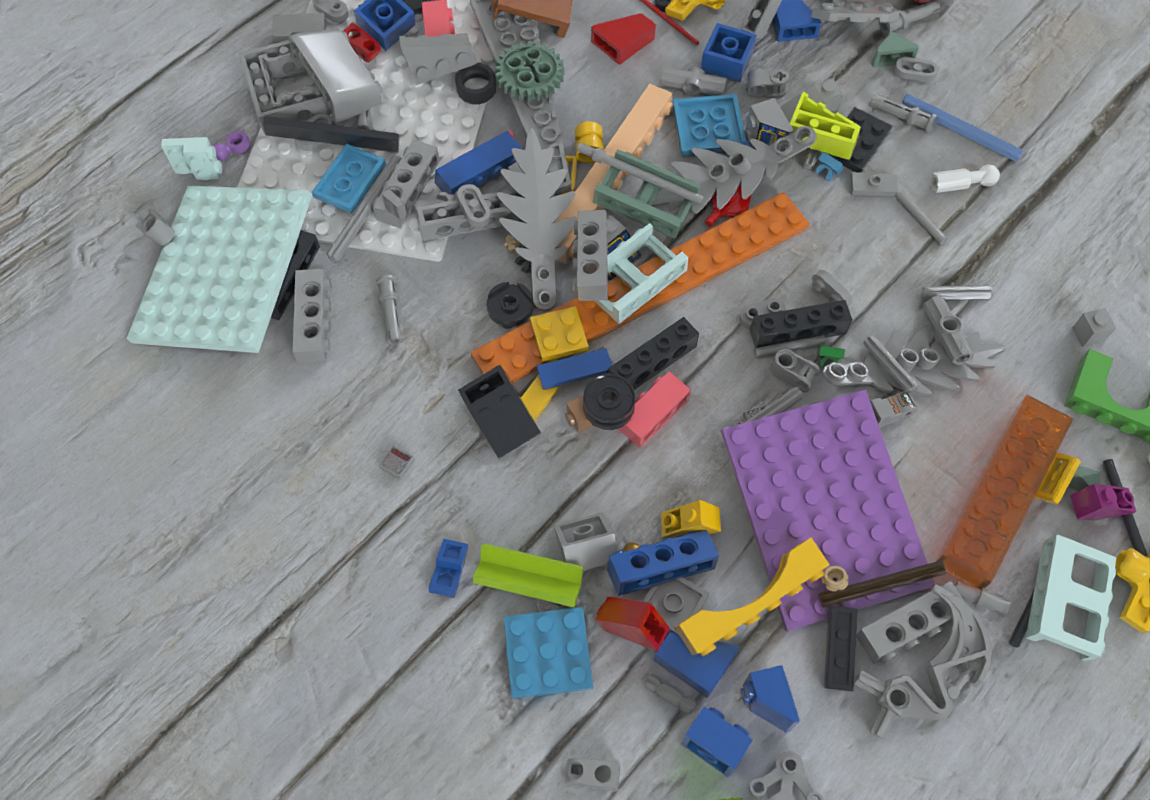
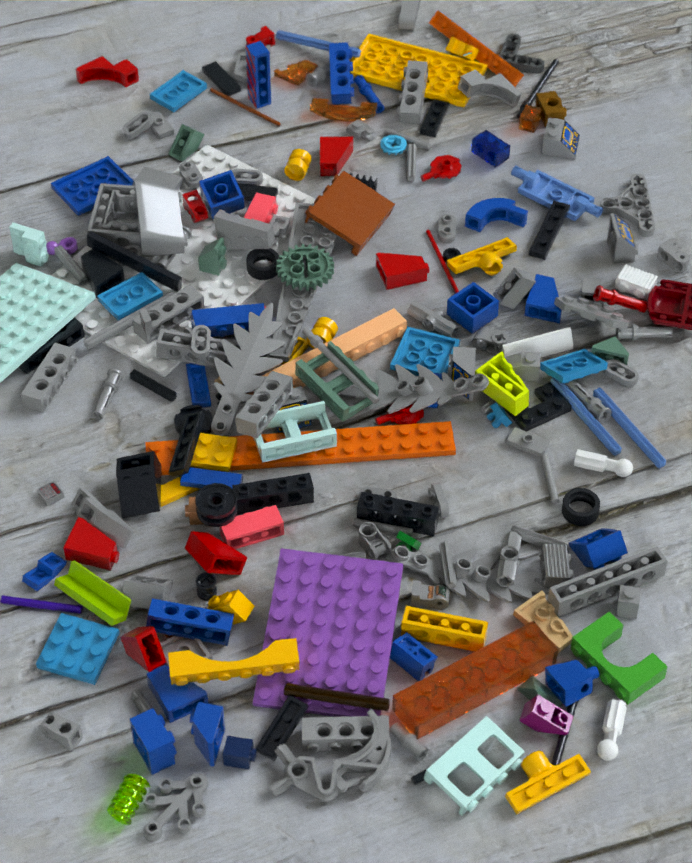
camera: 25 degrees right, 15 degrees down
(216, 61) = (82, 186): none -> blue plate
(254, 164) = (70, 263): none -> light grey axle
(298, 161) = (101, 271): none -> black slope
(417, 95) = (212, 257): none -> sand green slope
(436, 277) = (153, 385): none -> black axle
(466, 27) = (280, 225): none -> light grey plate
(470, 613) = (41, 604): none -> dark purple bar
(479, 474) = (101, 518): none -> light grey slope
(486, 257) = (198, 385): none -> blue tile
(487, 512) = (90, 546): none -> red slope
(524, 337) = (186, 444): none -> black tile
(635, 462) = (214, 554): none -> red slope
(650, 500) = (206, 586): none -> black wheel
(814, 703) = (239, 752): none -> dark blue brick
(818, 70) = (545, 344): none -> white slope
(838, 573) = (302, 676): tan plate -> none
(871, 79) = (573, 366): none -> dark azure plate
(915, 132) = (588, 418): none -> medium blue axle
(925, 491) = (412, 656): none -> blue hinge
(939, 444) = (444, 629): none -> yellow brick
(980, 224) = (578, 518): none -> black tyre
(996, 317) = (555, 564): none -> light grey brick
(1014, 383) = (543, 614): none -> tan wing
(1023, 276) = (599, 547): none -> blue slope
(1059, 479) = (520, 686): yellow tile -> none
(1061, 314) = (606, 581): none -> light grey brick
(1101, 447) = (570, 681): none -> blue torso

